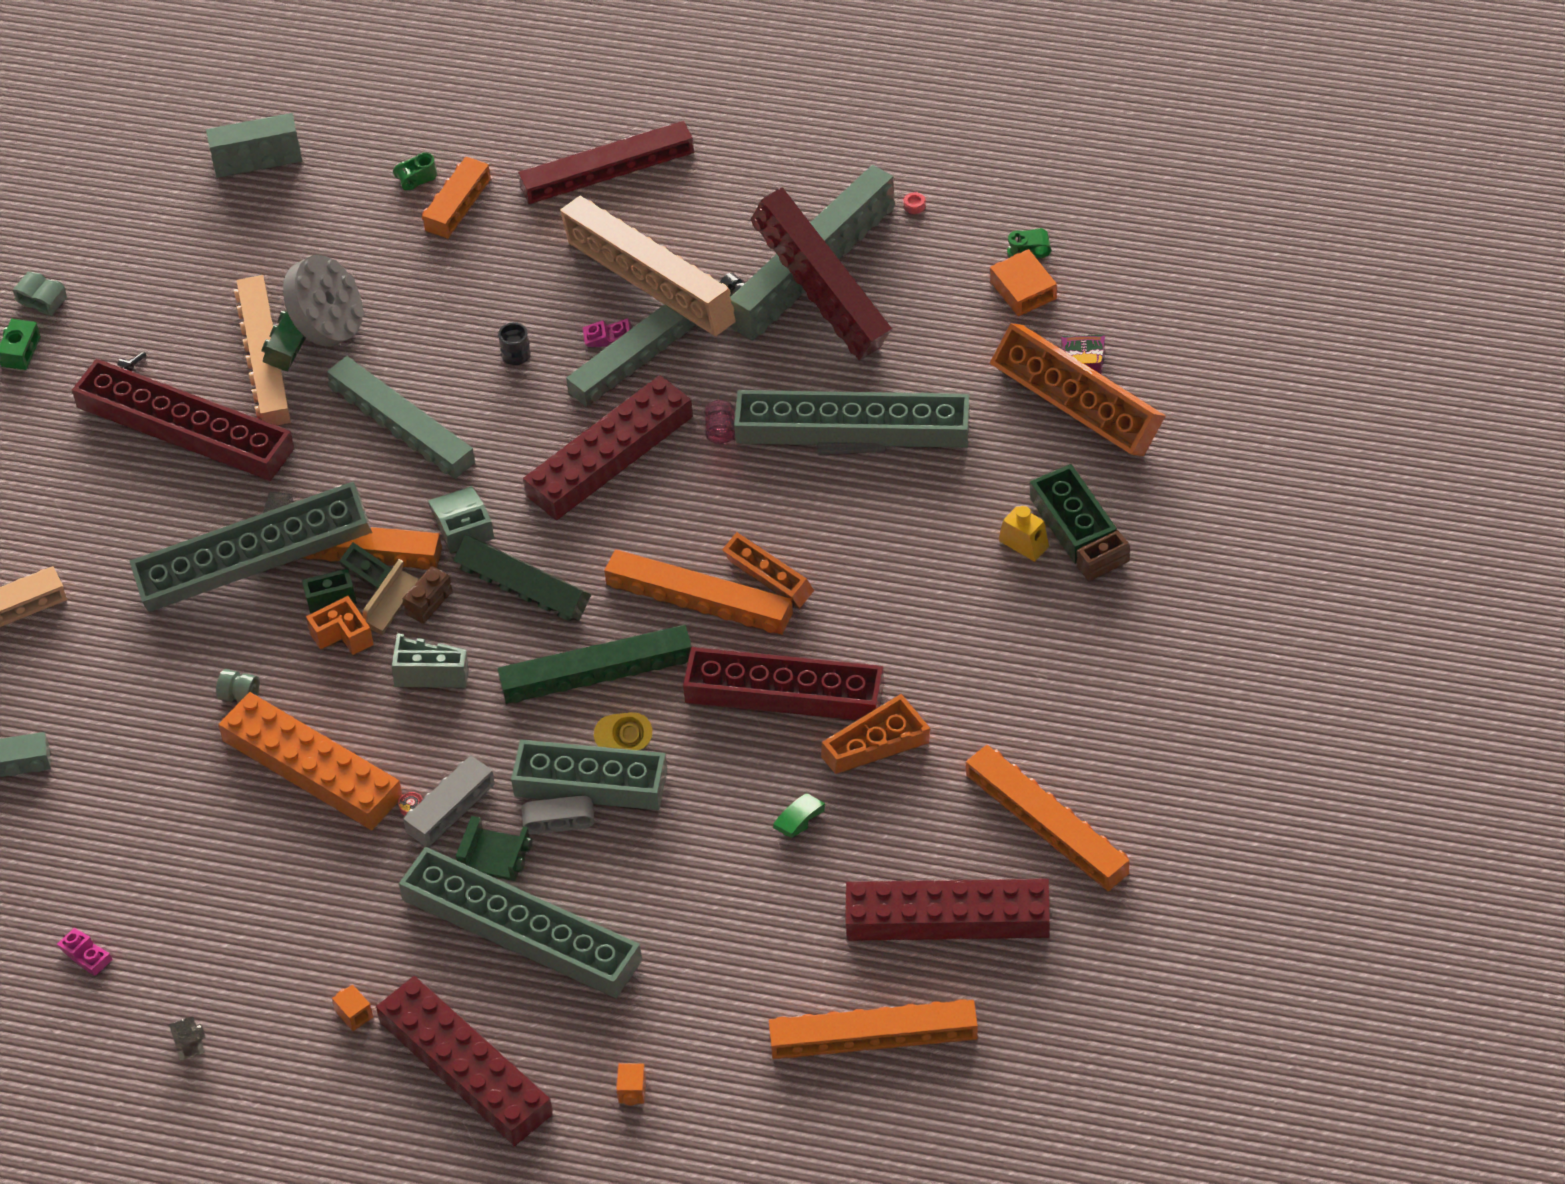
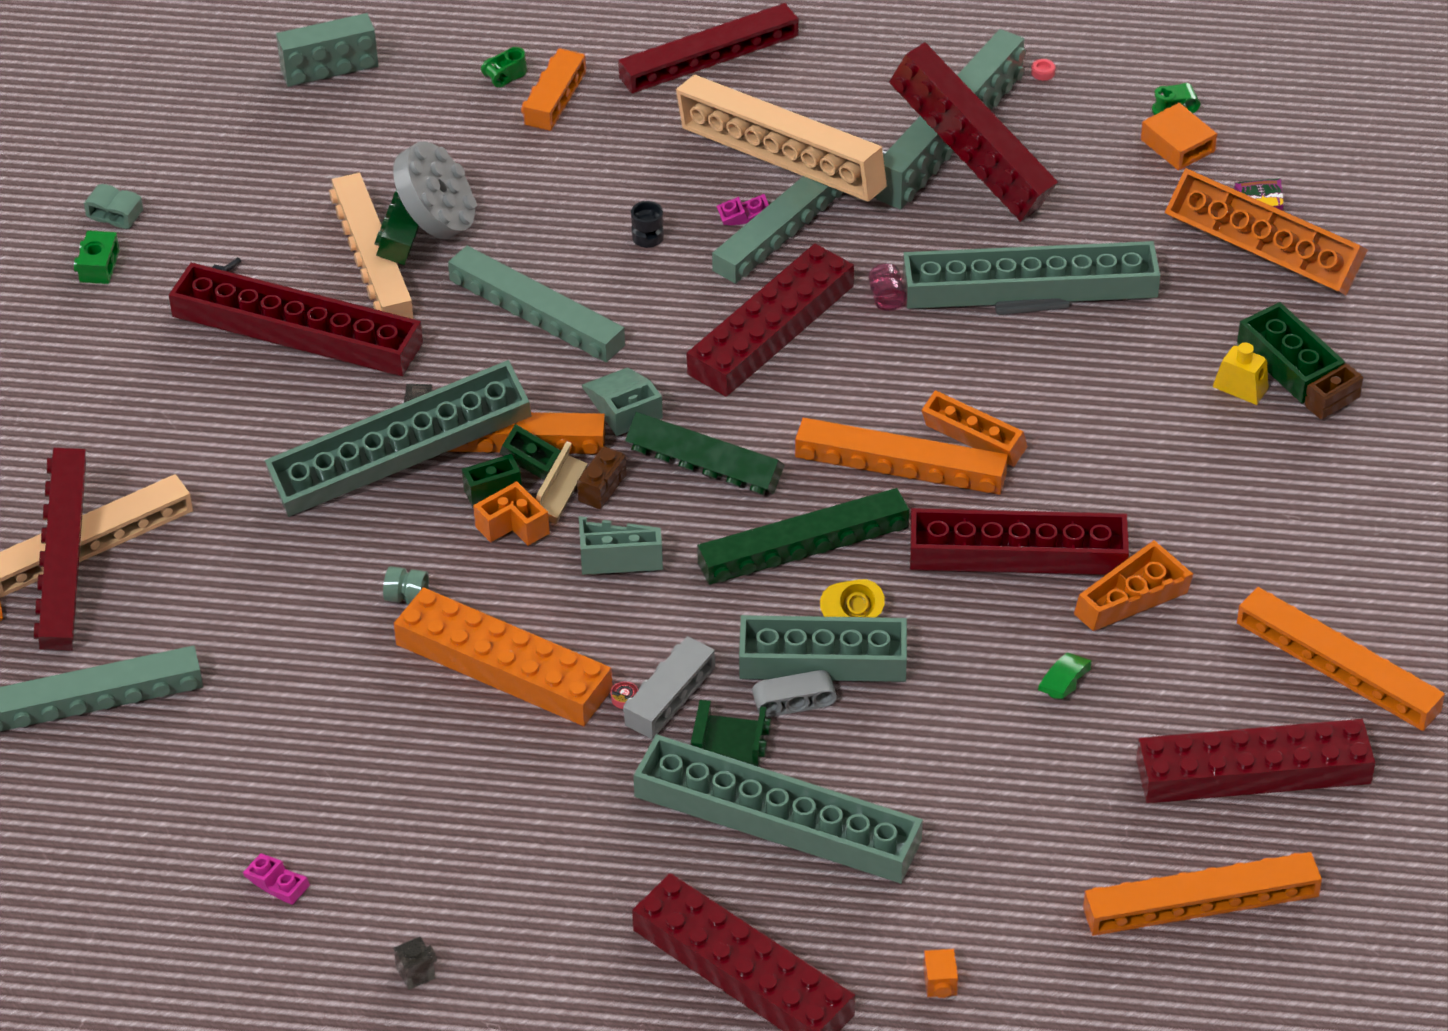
camera: 10 degrees left, 5 degrees down
(352, 1007) = (601, 915): orange brick -> none

